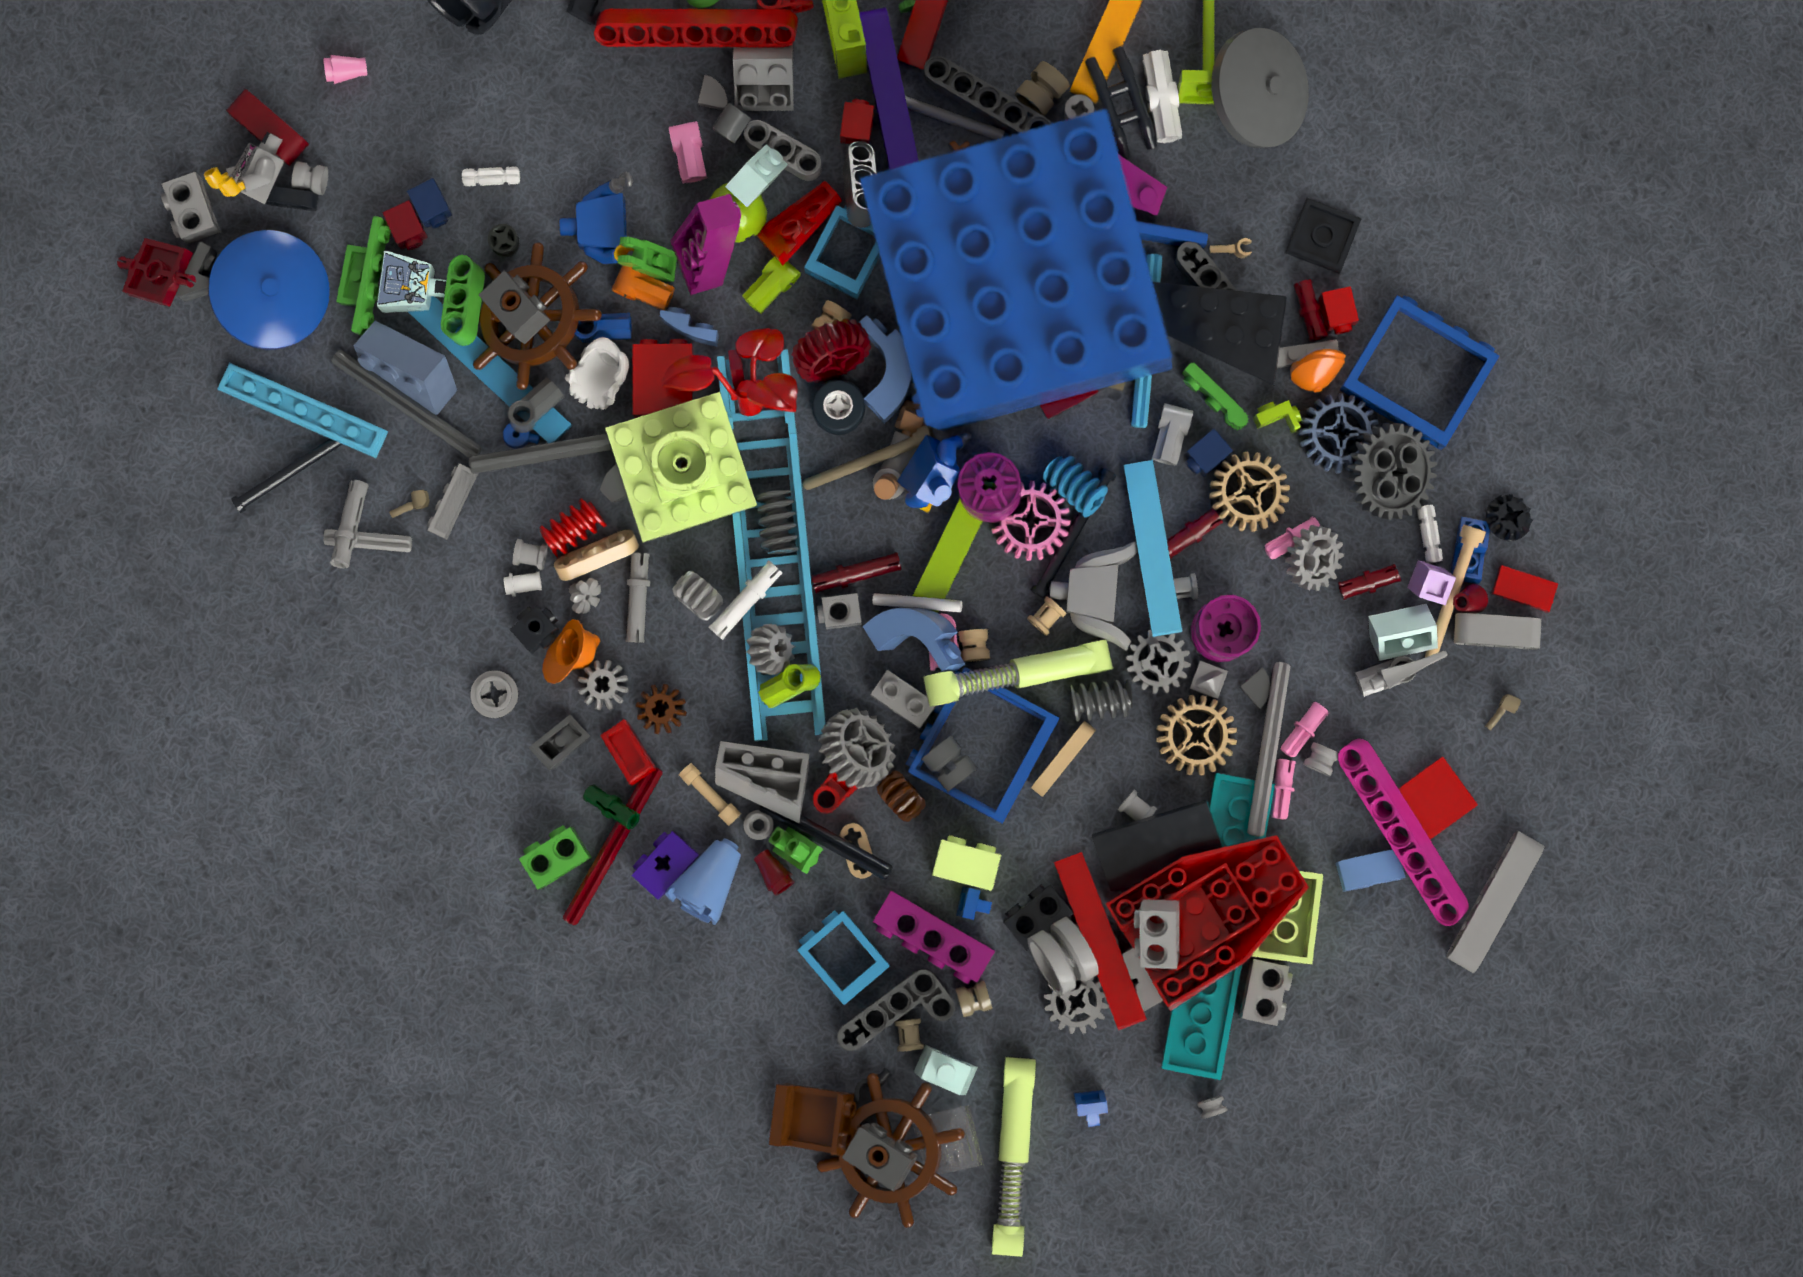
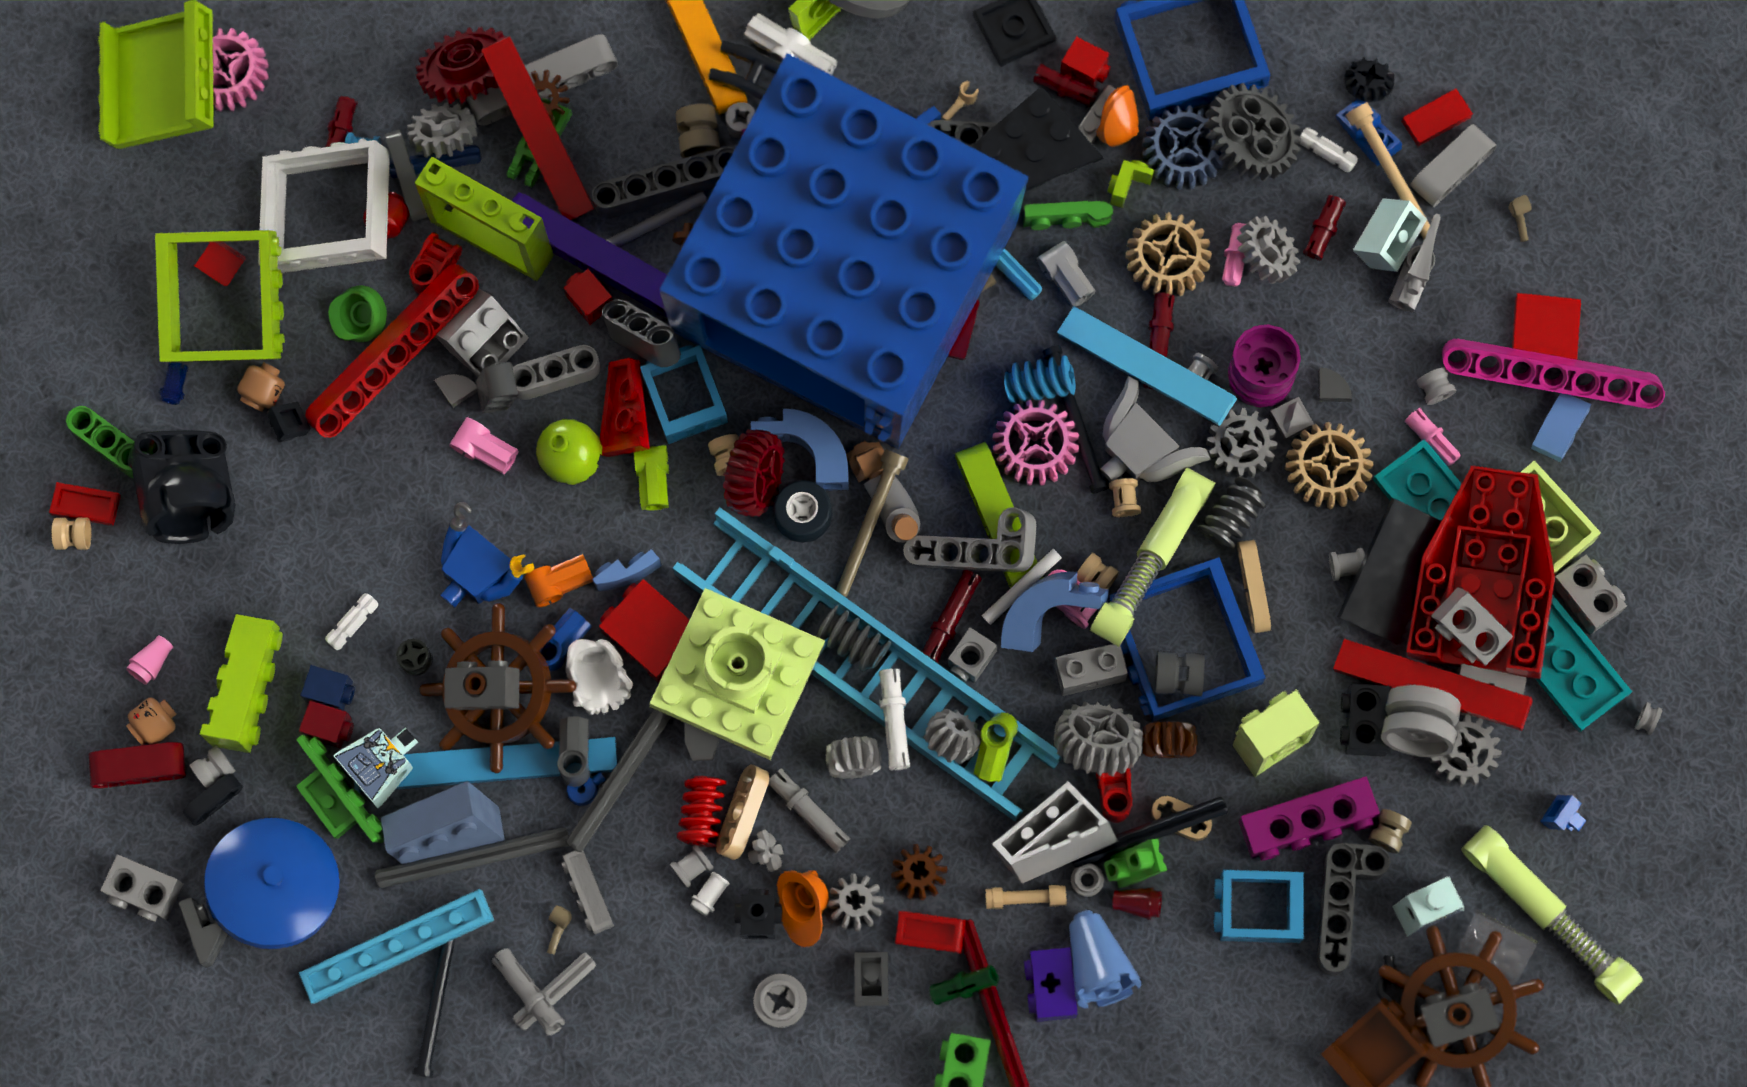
camera: 45 degrees left, 10 degrees down
(157, 272) = (168, 961): dark red plate -> none
(253, 173) = (165, 806): light grey torso -> none
(303, 109) = (151, 721): none -> medium nougat head
(381, 145) = (243, 684): none -> lime wedge
(456, 289) = (419, 726): bright green beam -> none
(649, 259) = (542, 550): bright green hinge -> none
(706, 243) = (575, 489): magenta wedge -> none
(736, 368) = (698, 563): dark red tile -> none
(756, 175) = (558, 403): light aqua brick -> none
(774, 392) = (747, 539): red plant -> none
(909, 1034) = (1373, 910): dark tan bush -> none
(910, 544) = (970, 548): none -> light grey beam
(932, 471) = (929, 478): blue torso -> none
(970, 903) = (1307, 763): blue tile -> none
(989, 504) = (983, 461): magenta wheel -> none
(1207, 453) = (1108, 259): dark blue brick -> none
(1268, 749) = (1392, 418): light grey axle -> none
(1304, 729) = (1400, 379): bright pink axle -> none
(1431, 582) = (1369, 179): lavender brick -> none
(1471, 599) = (1415, 156): dark red cone -> none
(1495, 902) = (1673, 353): light grey beam -> none

